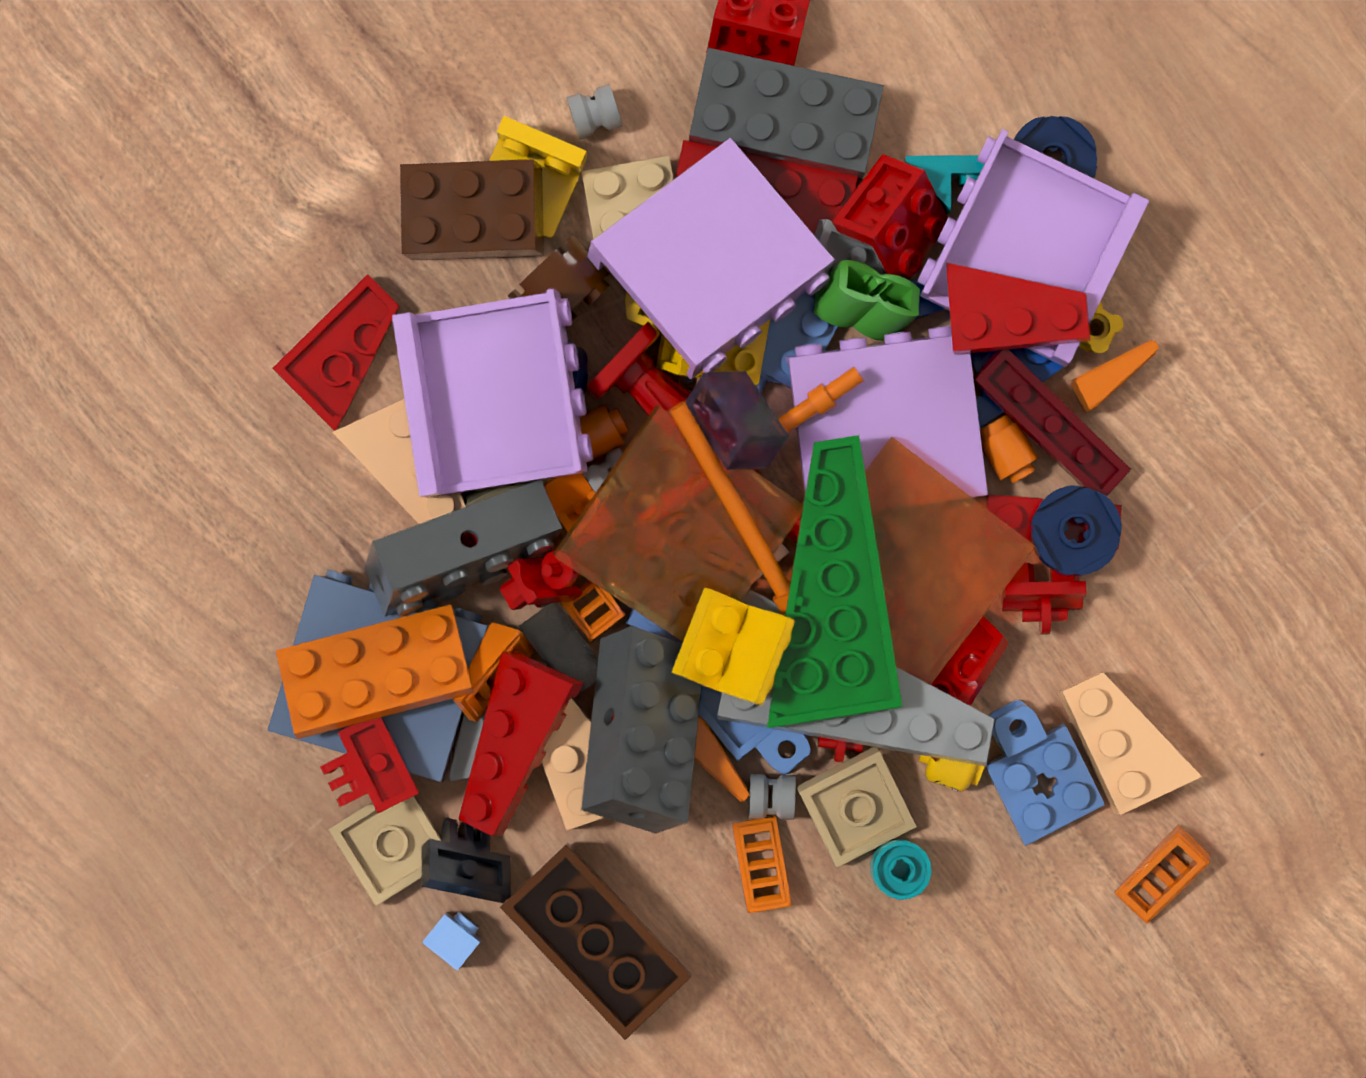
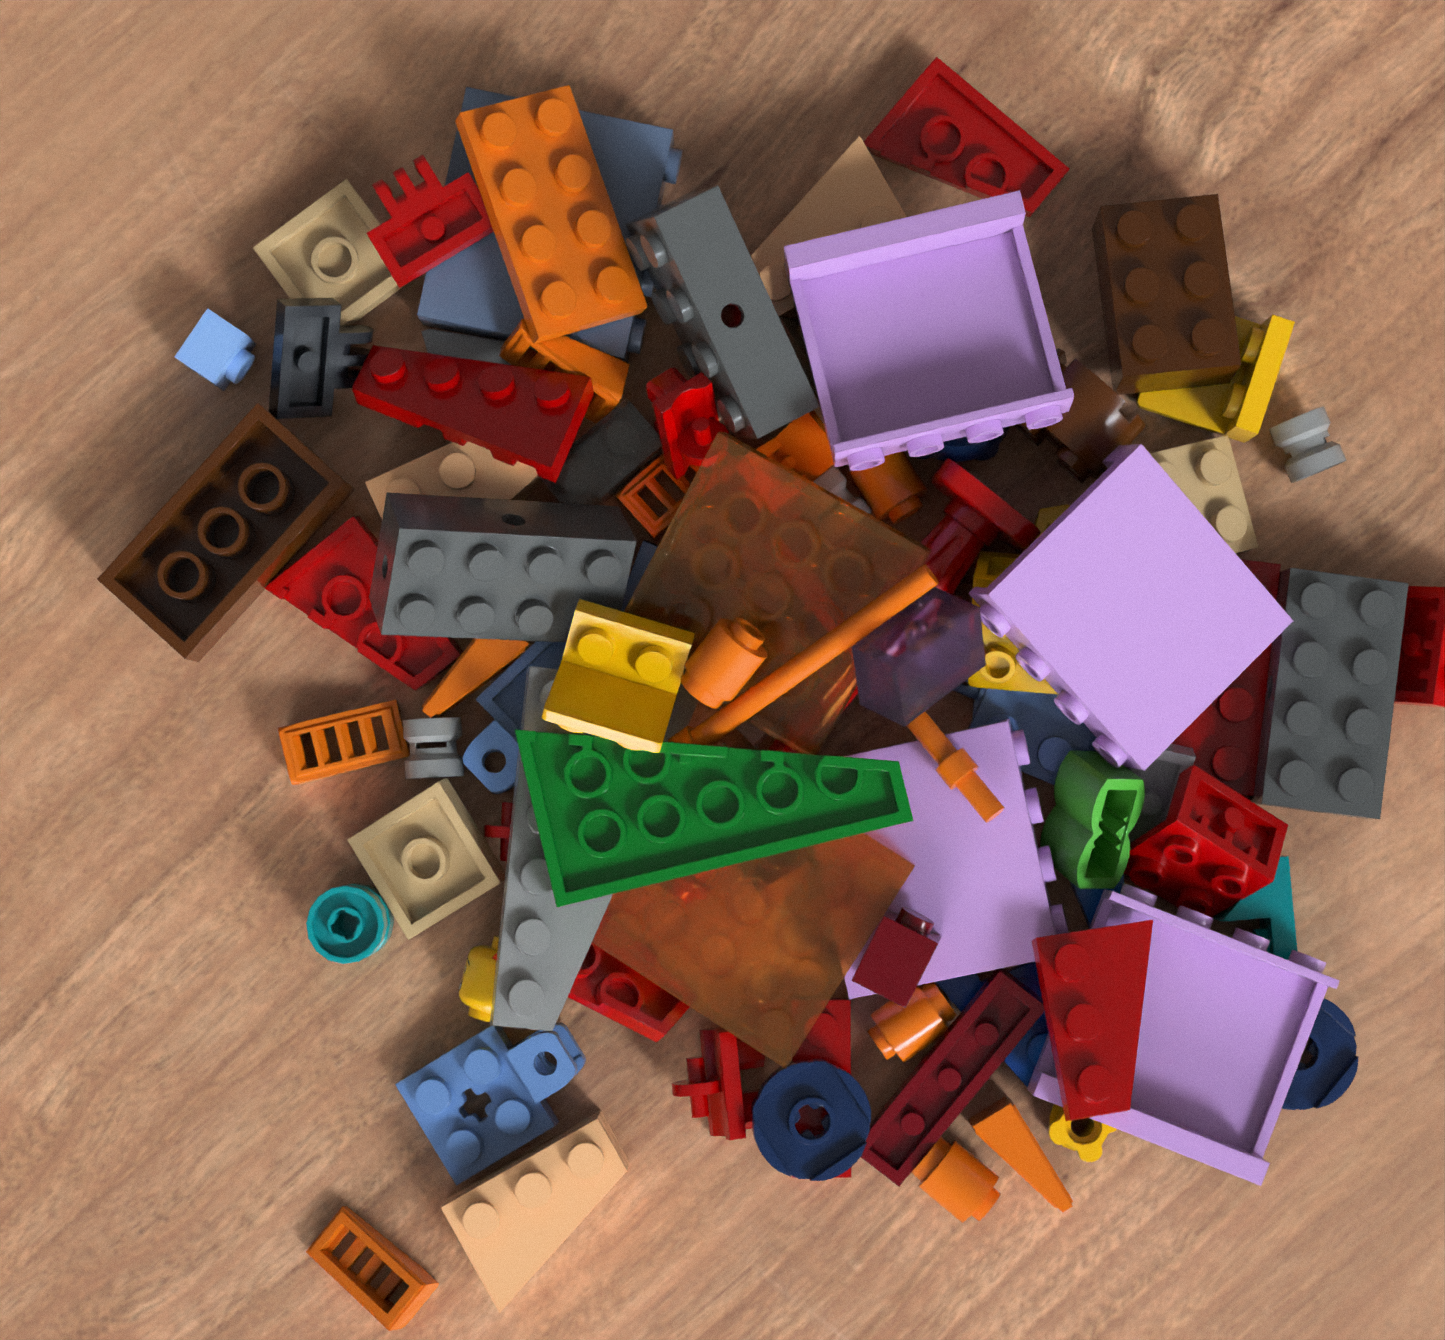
camera: 90 degrees right, 0 degrees up
(647, 860) = (334, 592): none -> red wing
(728, 566) = (724, 661): none -> orange brick
(958, 455) = (897, 955): none -> dark red brick
(1130, 425) = (957, 1180): none -> orange brick

